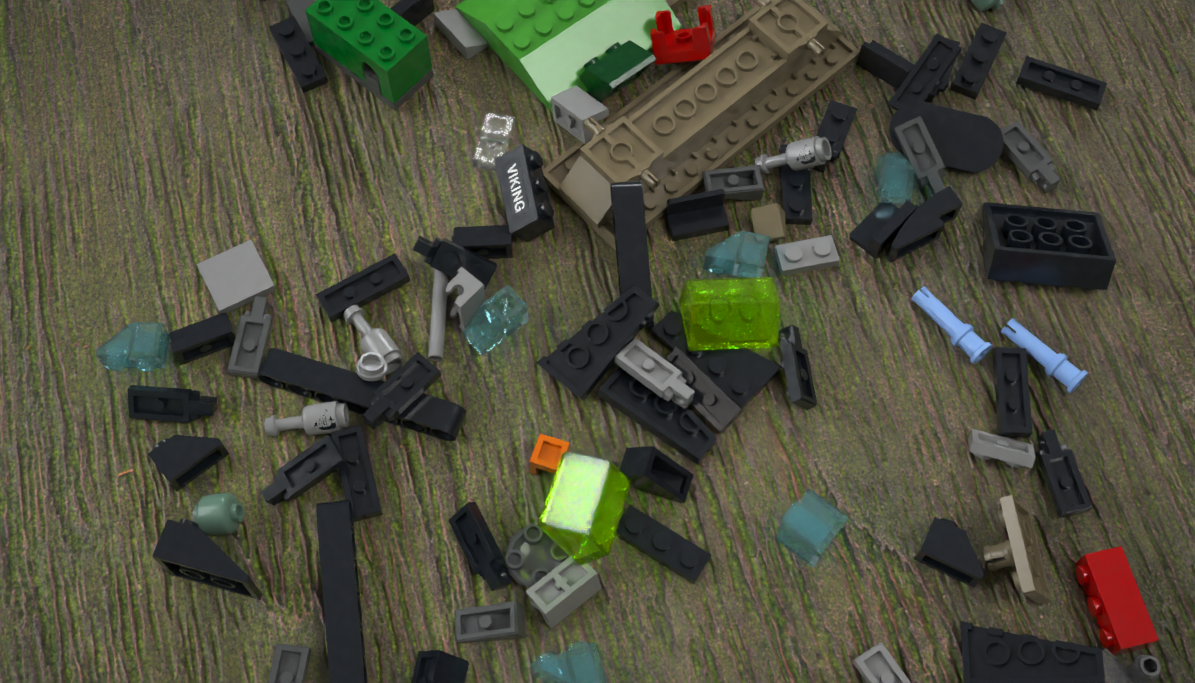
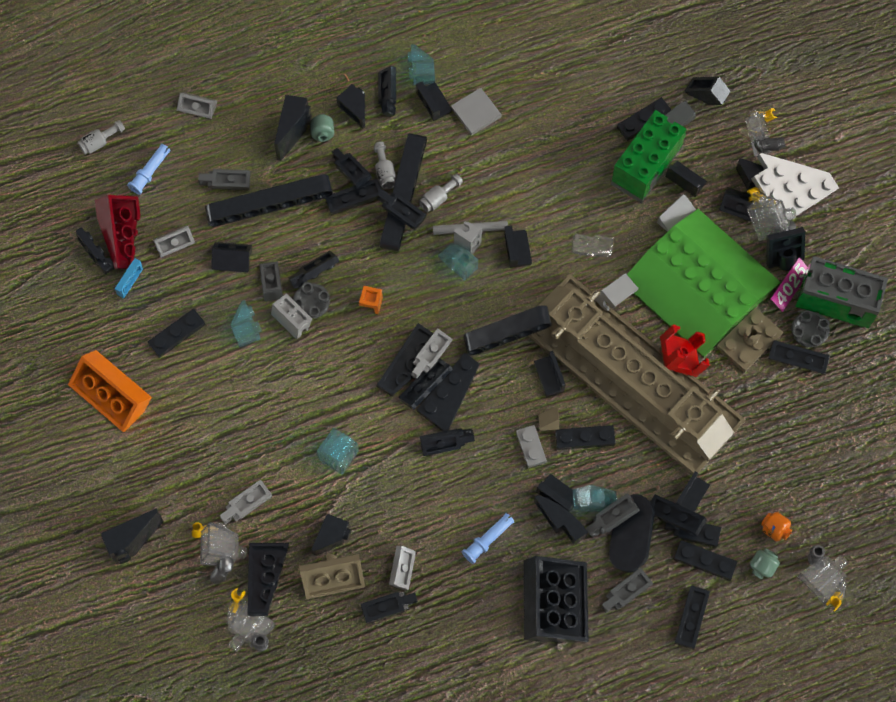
camera: 85 degrees right, 5 degrees up
(251, 340) = (434, 126): dark grey hinge -> none
(363, 287) = (475, 182): black plate -> none
(371, 366) = (416, 191): light grey plate -> none
(449, 257) = (495, 230): black hinge -> none
(525, 193) = (551, 265): black brick -> none
(584, 506) = (336, 316): clear neon green slope -> none
(592, 351) = (439, 313): black wing -> none
(616, 69) = (652, 311): dark green slope -> none
(656, 473) = (366, 361): black slope -> none
(662, 544) = (325, 370): black plate -> none
(730, 313) = (476, 396): clear neon green slope -> none
(737, 182) = (577, 395): dark grey slope -> none
(738, 255) = (523, 404): clear light blue slope -> none
(798, 155) = (598, 431): light grey piece -> none
(835, 128) = (628, 460): black hinge -> none
(1012, 392) = (443, 576): black plate -> none
(1054, 363) = (466, 604): light blue pin -> none
(1115, 601) = (306, 634): red brick -> none

